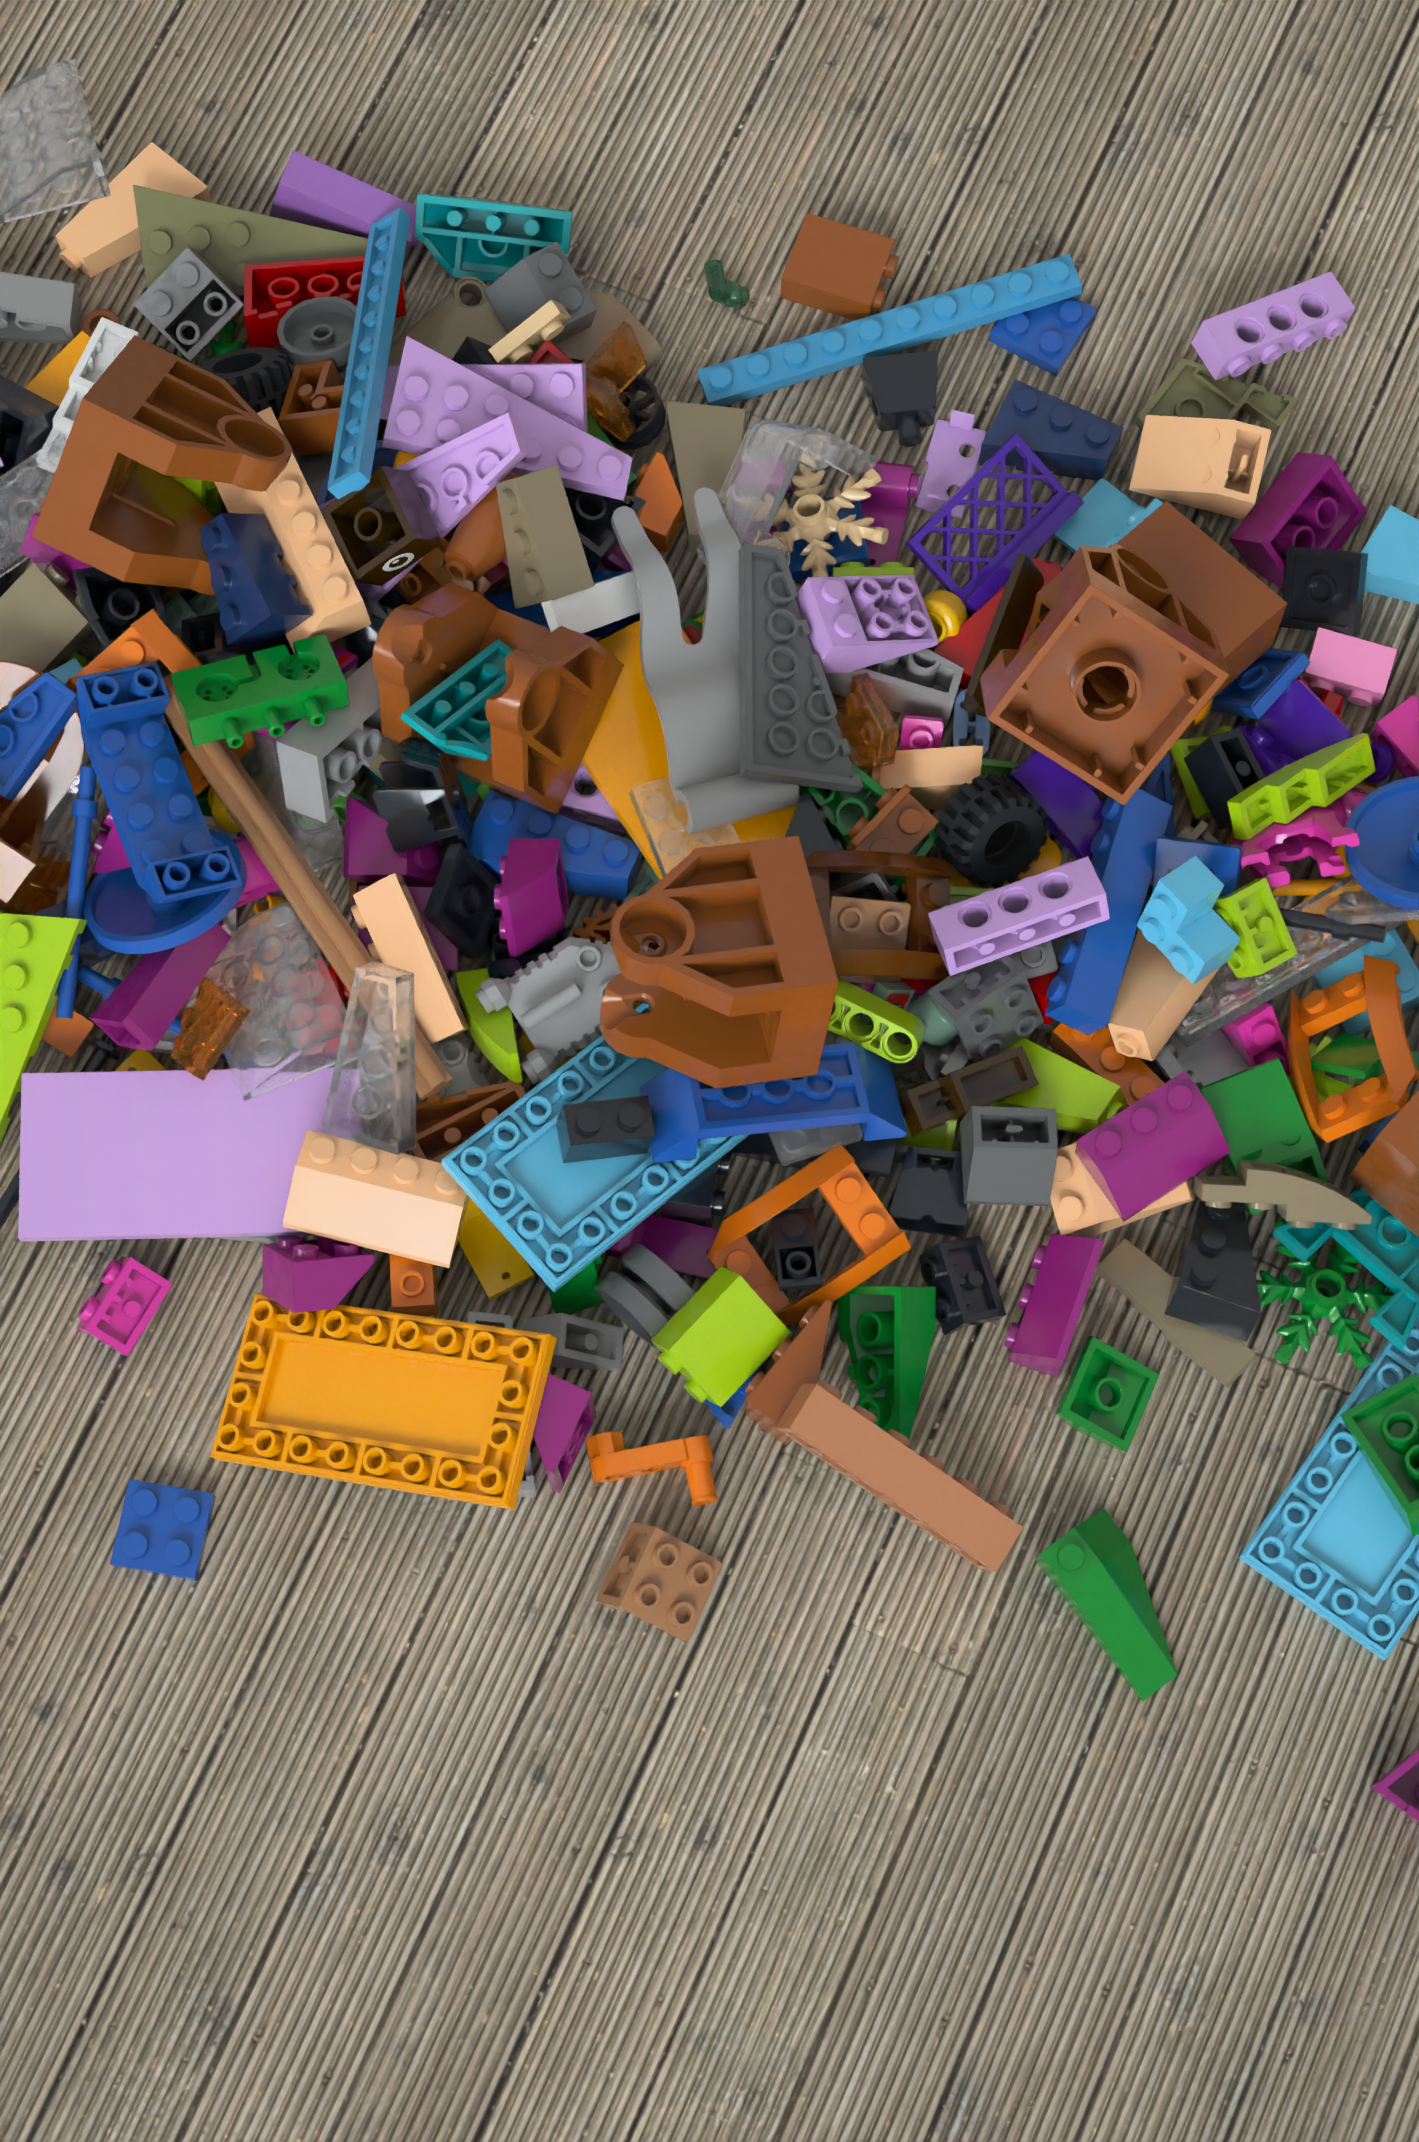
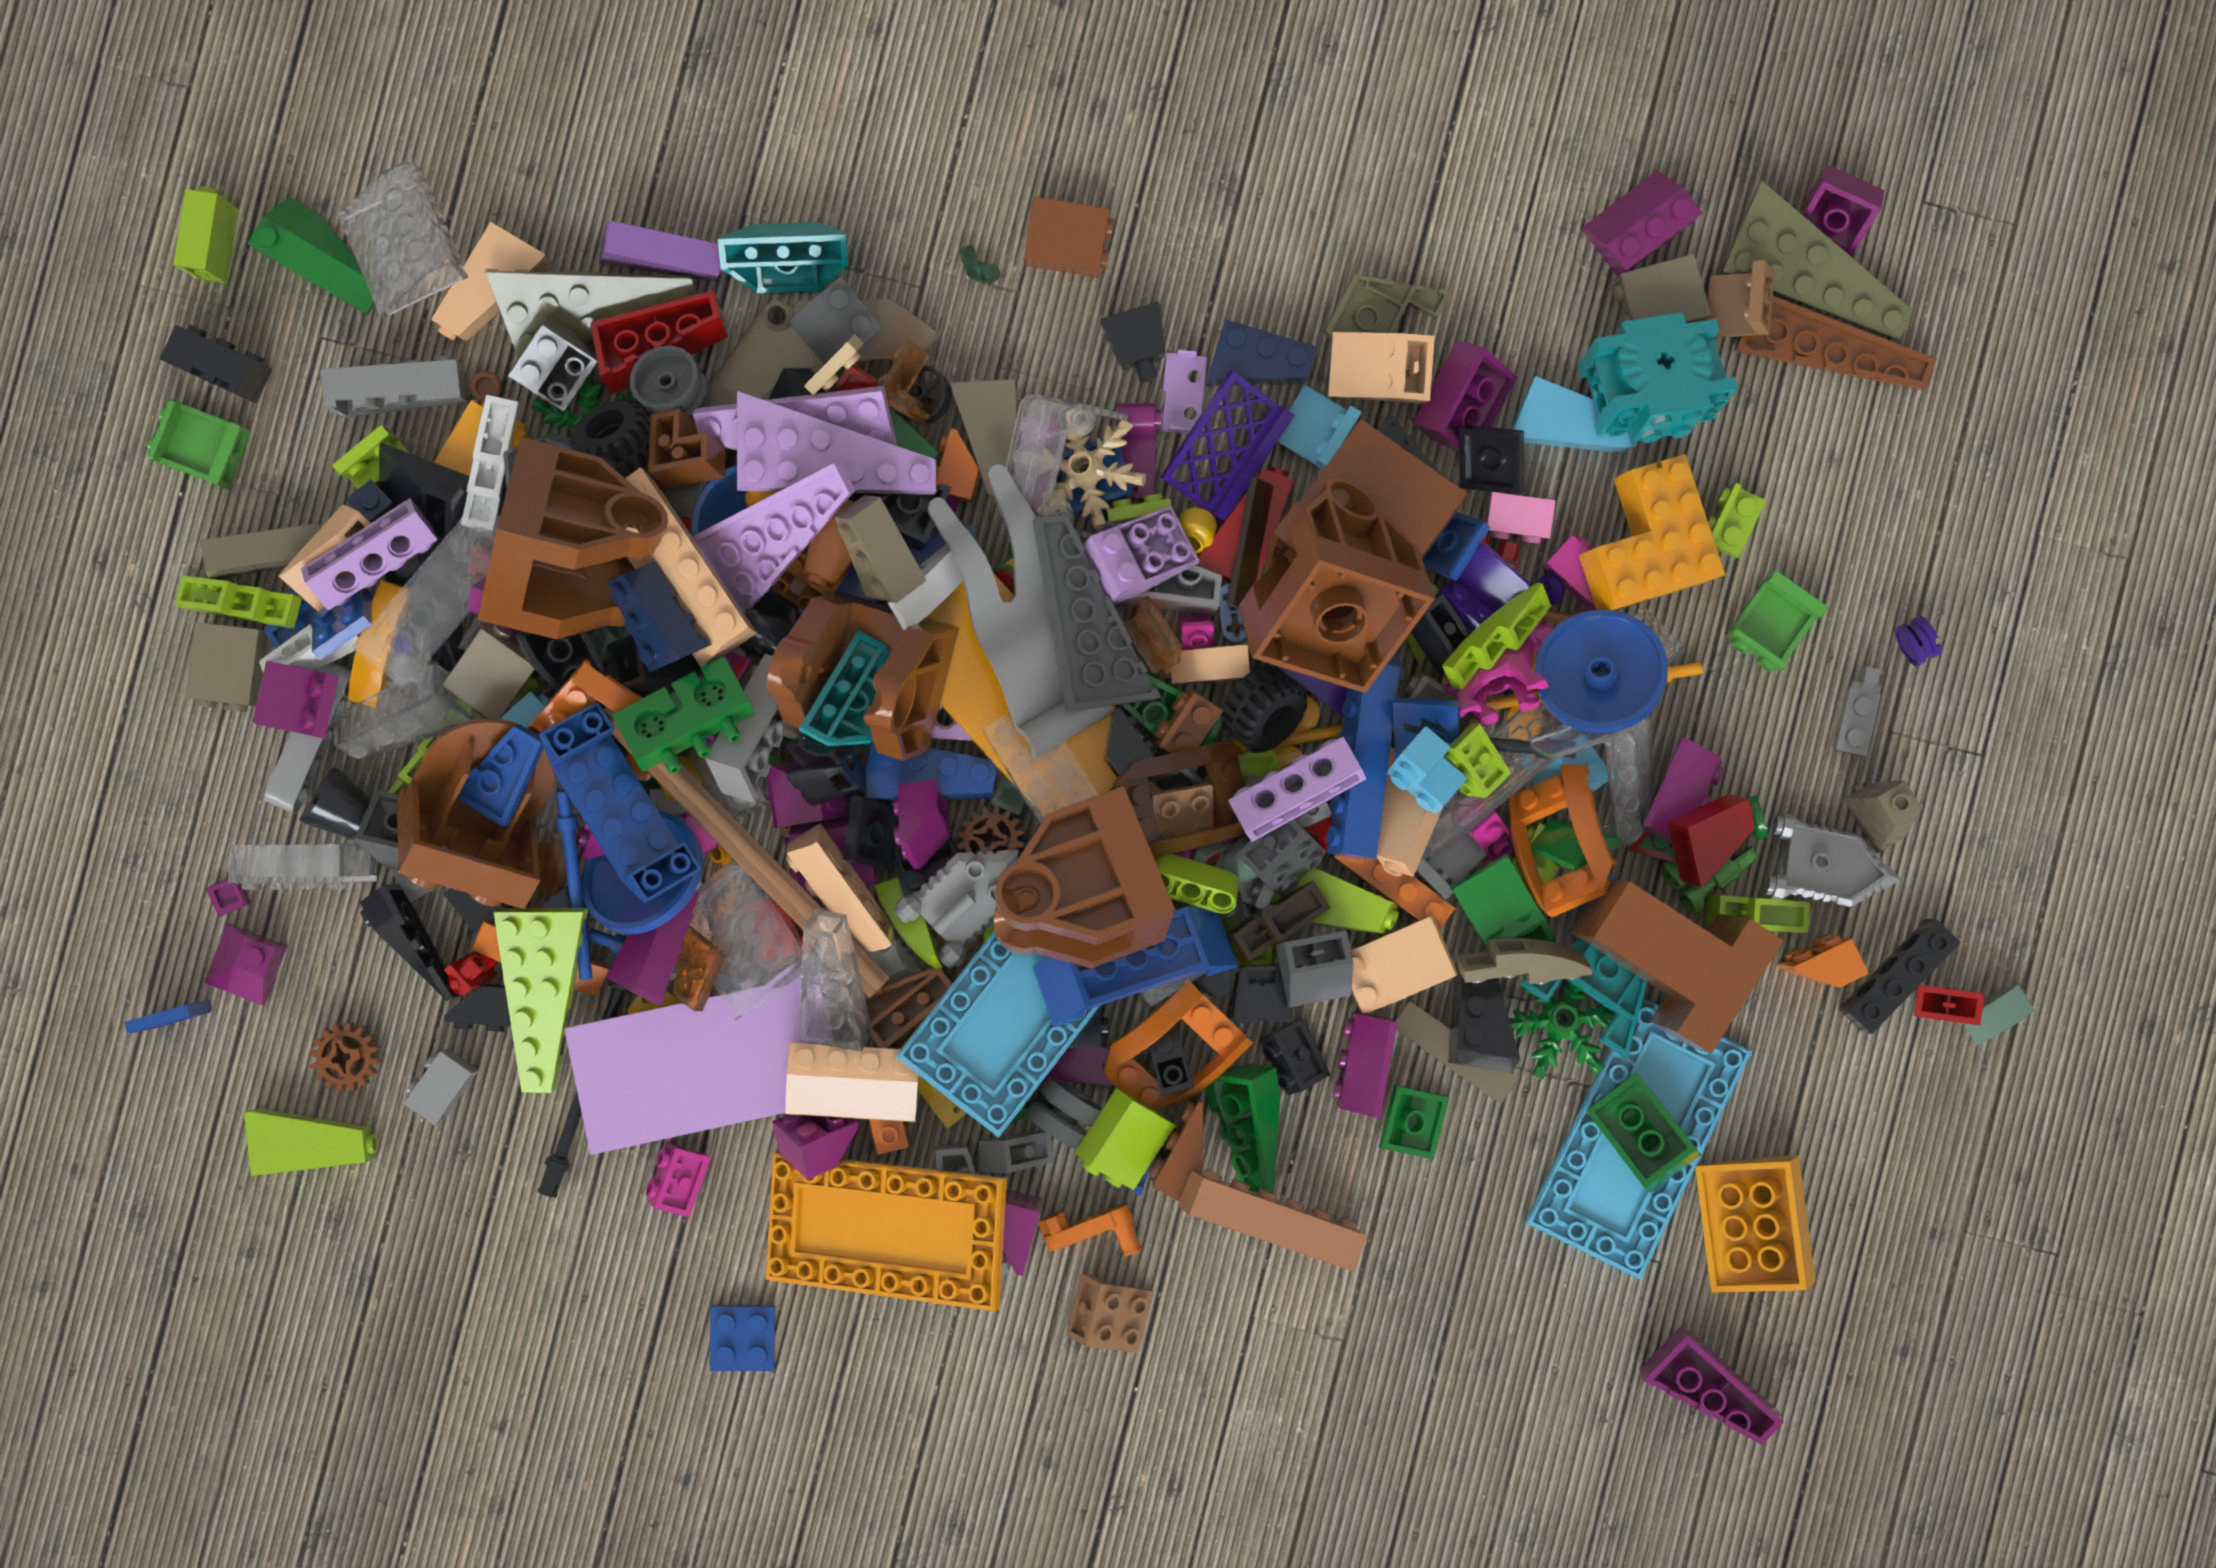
camera: 10 degrees left, 15 degrees up
(369, 355) = (709, 406): dark azure plate -> none
(382, 527) = (750, 560): dark brown brick -> none
(605, 1129) = (1013, 1011): black brick -> none
(890, 331) = (1118, 286): dark azure plate -> none
(1045, 333) = (1238, 256): blue plate -> none
(1106, 1590) = (1433, 1264): green wedge -> none
(1153, 1146) = (1423, 945): magenta slope -> none
(1273, 326) = (1457, 201): lavender brick -> none

